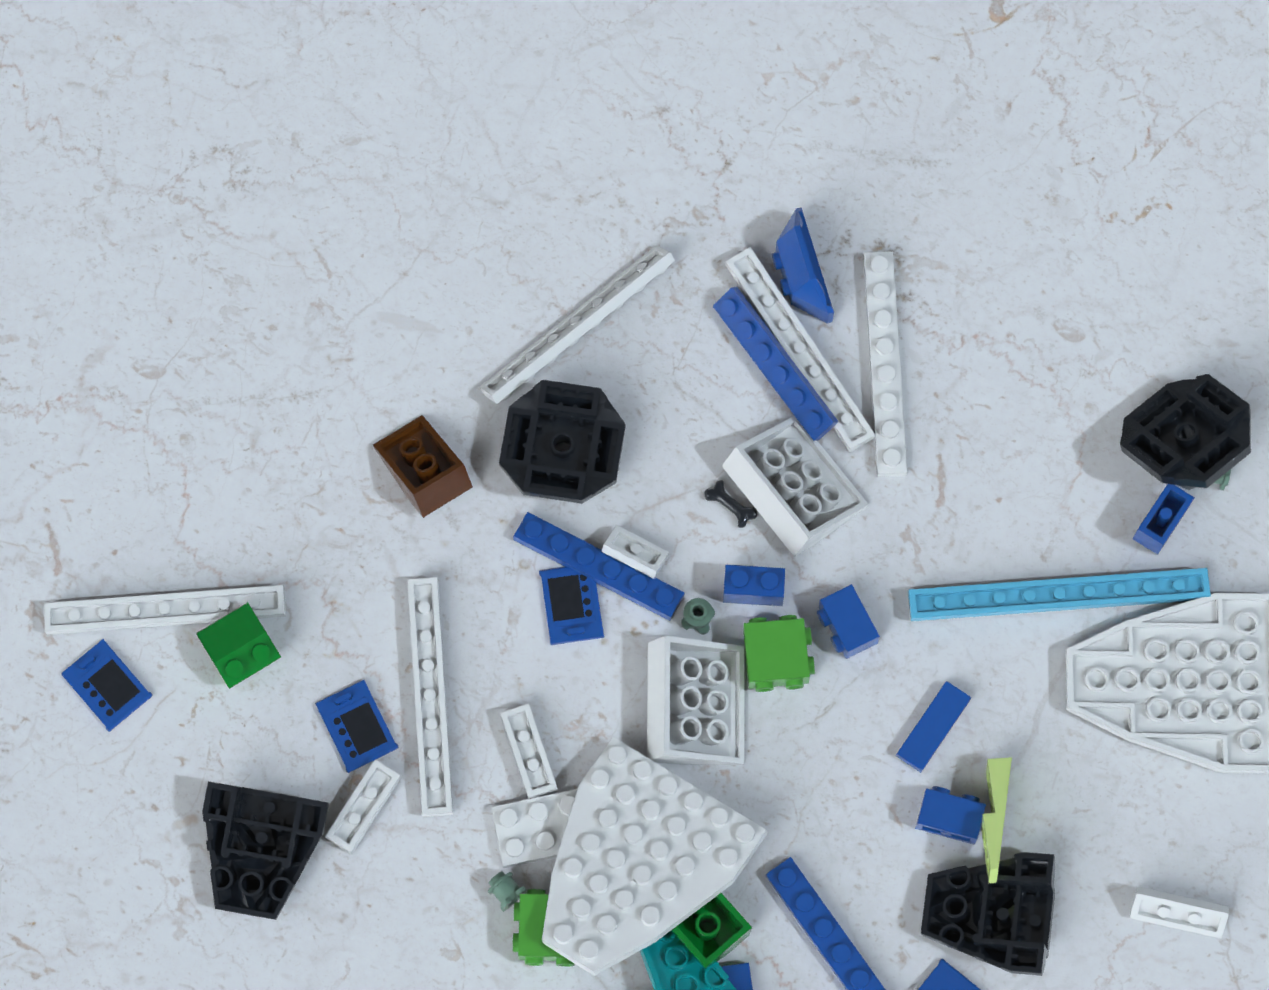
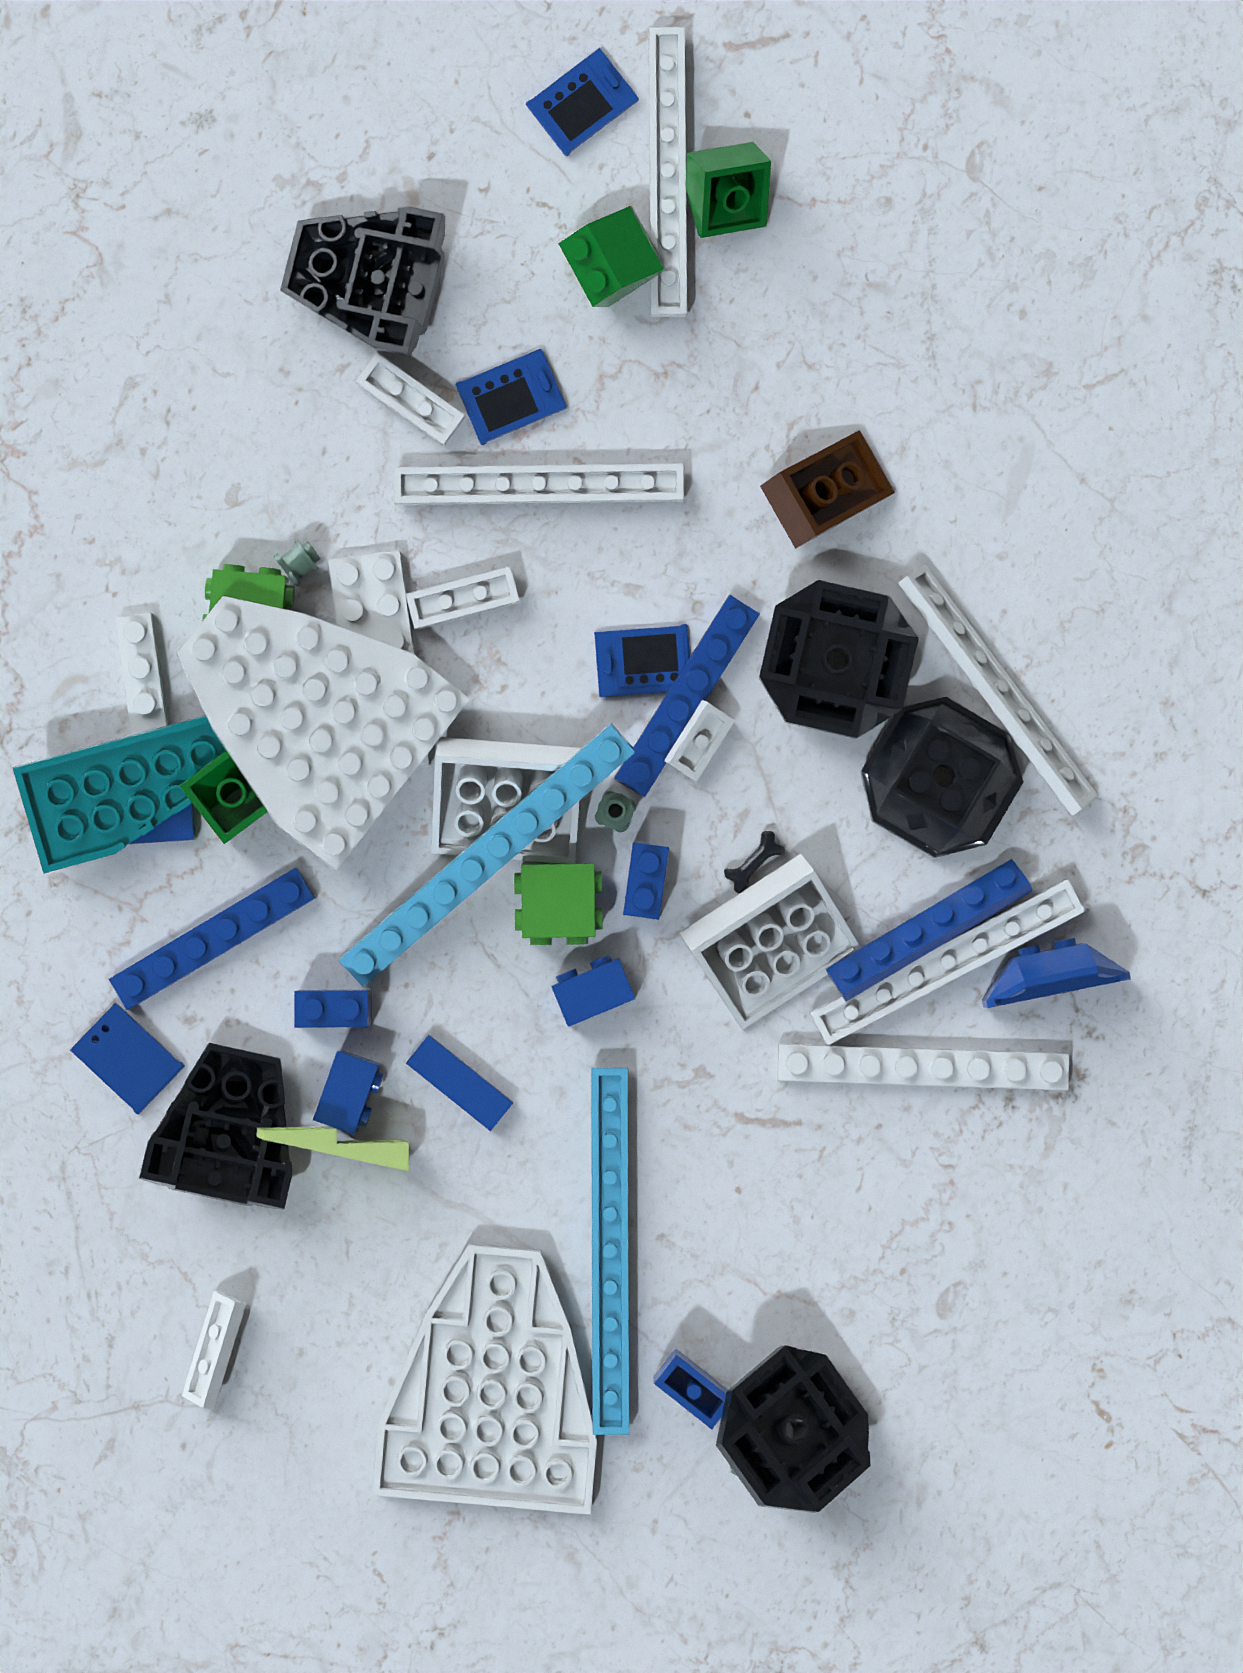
camera: 90 degrees right, 15 degrees up
(178, 557) = (728, 188): none -> green slope
(660, 389) = (902, 783): none -> black piece
(744, 711) = (487, 854): none -> medium azure plate
(882, 832) = (332, 1008): none -> blue brick

